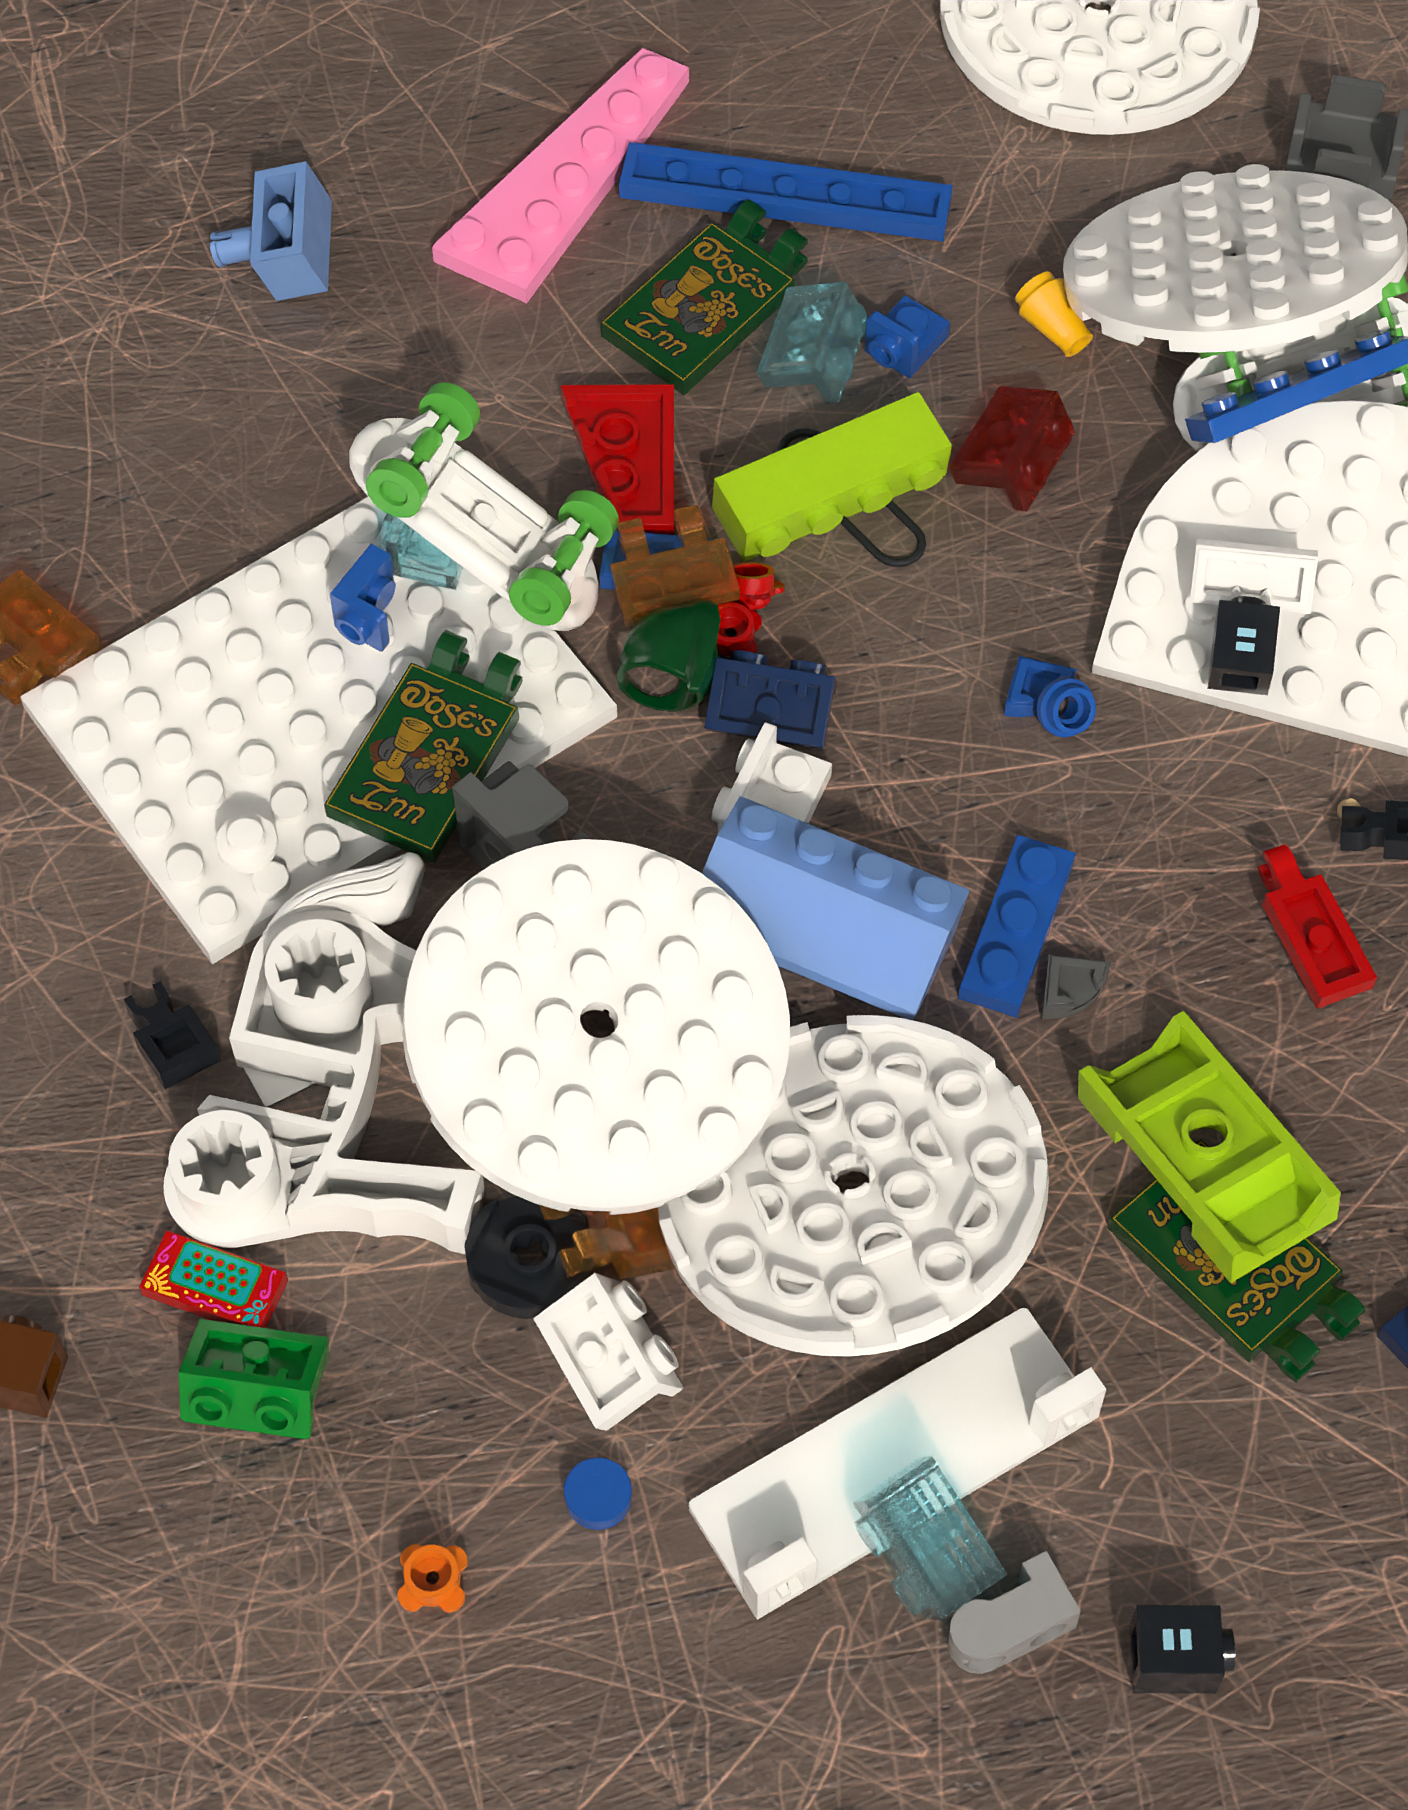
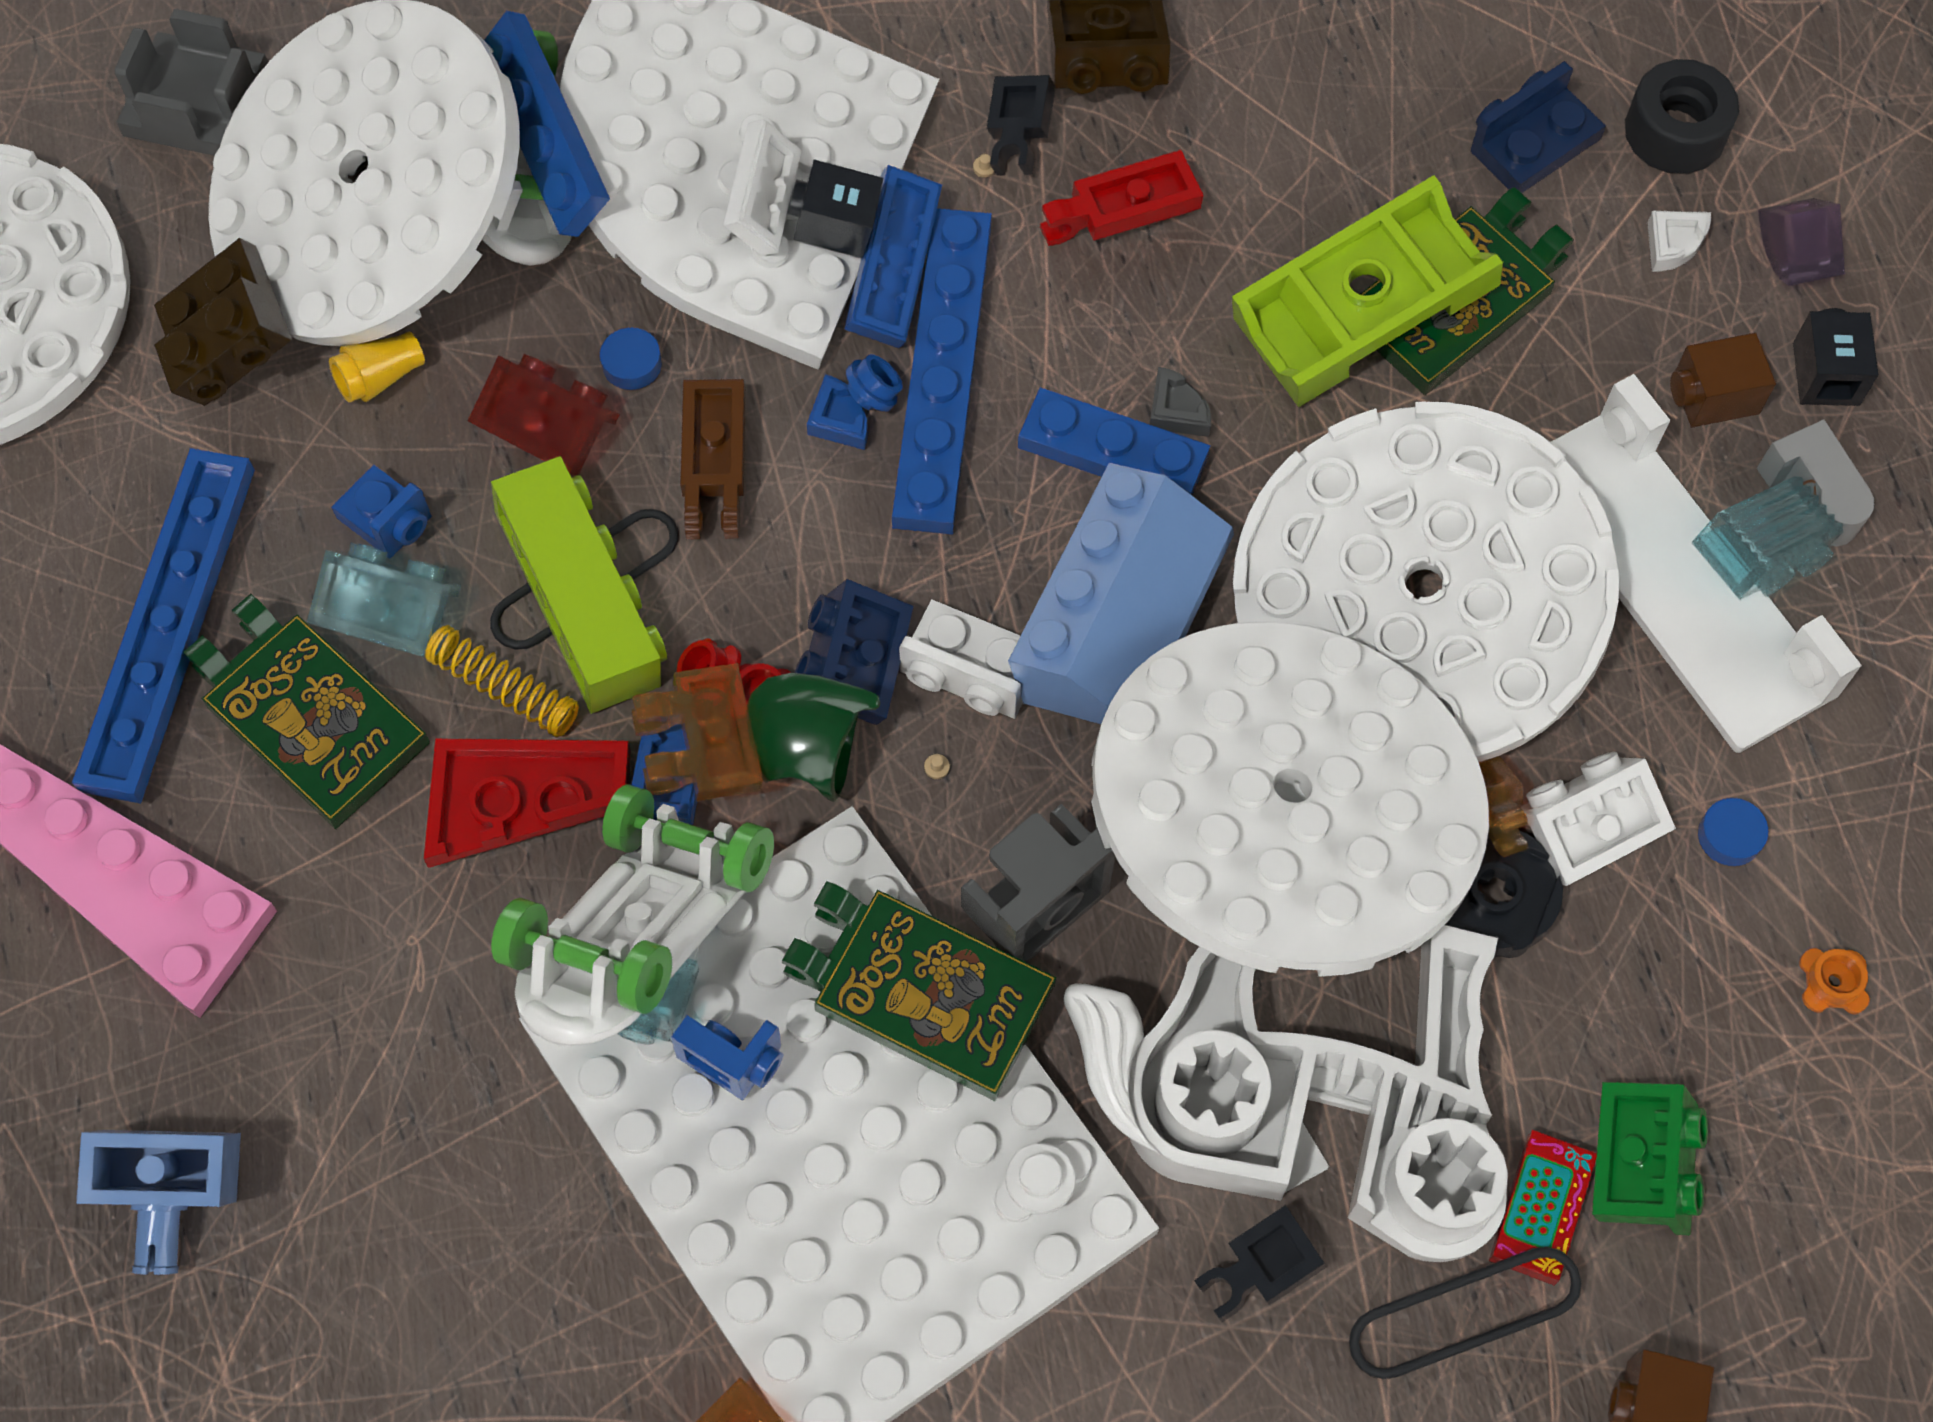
camera: 90 degrees left, 5 degrees up
(143, 1200) = (1475, 1341): none -> black piece
(665, 781) = (936, 766): none -> tan piece
(771, 398) = (447, 650): none -> yellow piece
(977, 580) = (713, 451): none -> reddish brown hinge
(1076, 193) = (219, 325): none -> dark brown plate
(1084, 513) = (630, 358): none -> blue tile
(1098, 773) = (942, 373): none -> blue plate
(1136, 1519) = (1722, 380): none -> reddish brown brick
(1215, 718) = (894, 258): none -> blue plate
(1335, 1500) = (1675, 237): none -> white tile
(1339, 1633) = (1803, 240): none -> clear purple brick

